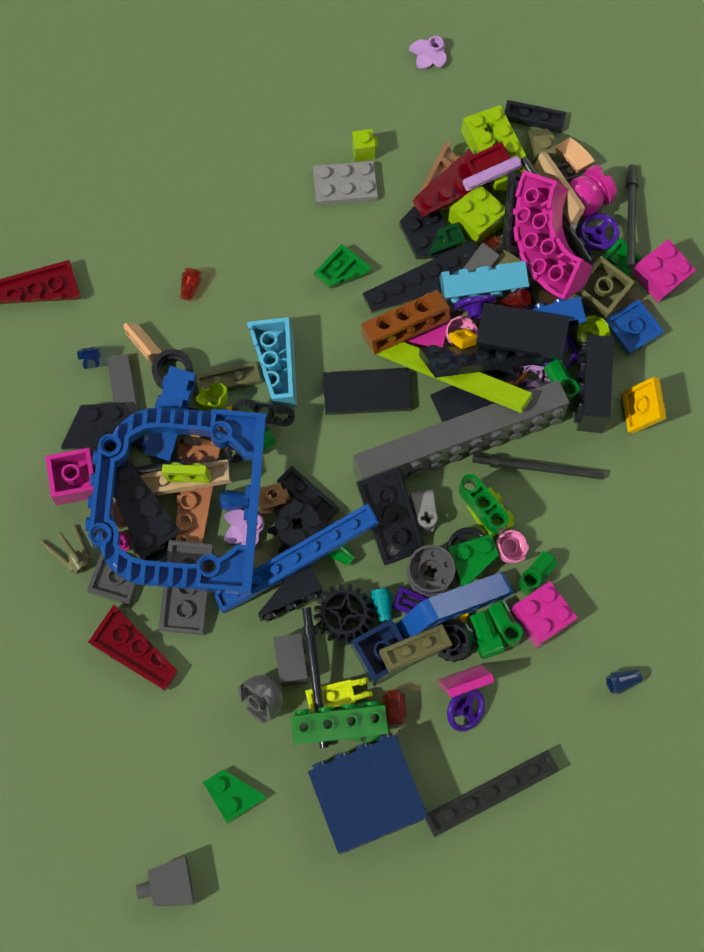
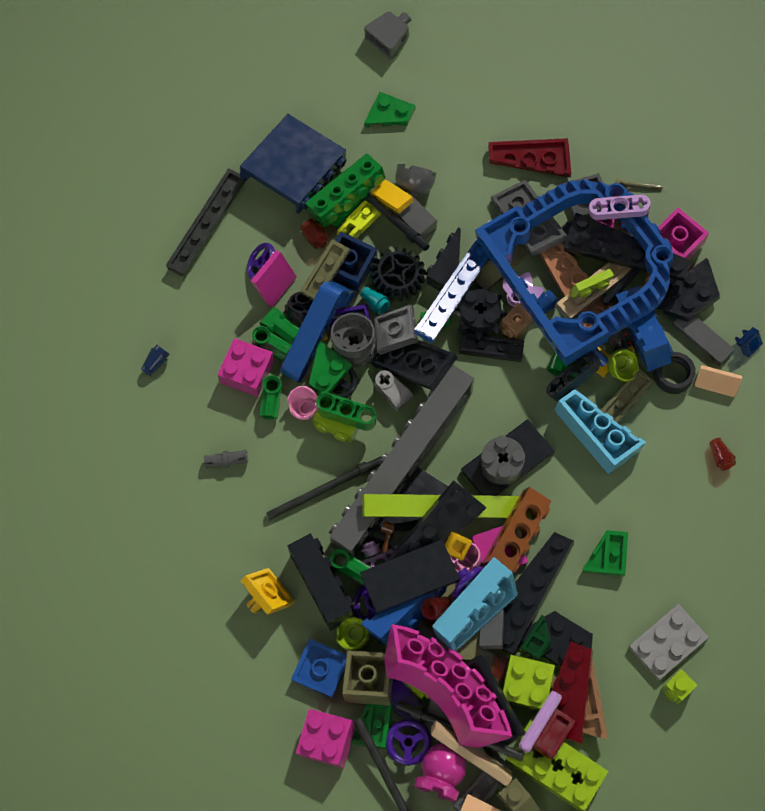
camera: 150 degrees right, 0 degrees up
(92, 508) = (612, 201): none -> lavender beam
(298, 687) = (392, 196): none -> yellow tile
(374, 372) = (504, 472): none -> dark grey brick
(384, 559) = (395, 329): none -> dark grey tile
(611, 545) = (225, 459): none -> dark grey pin

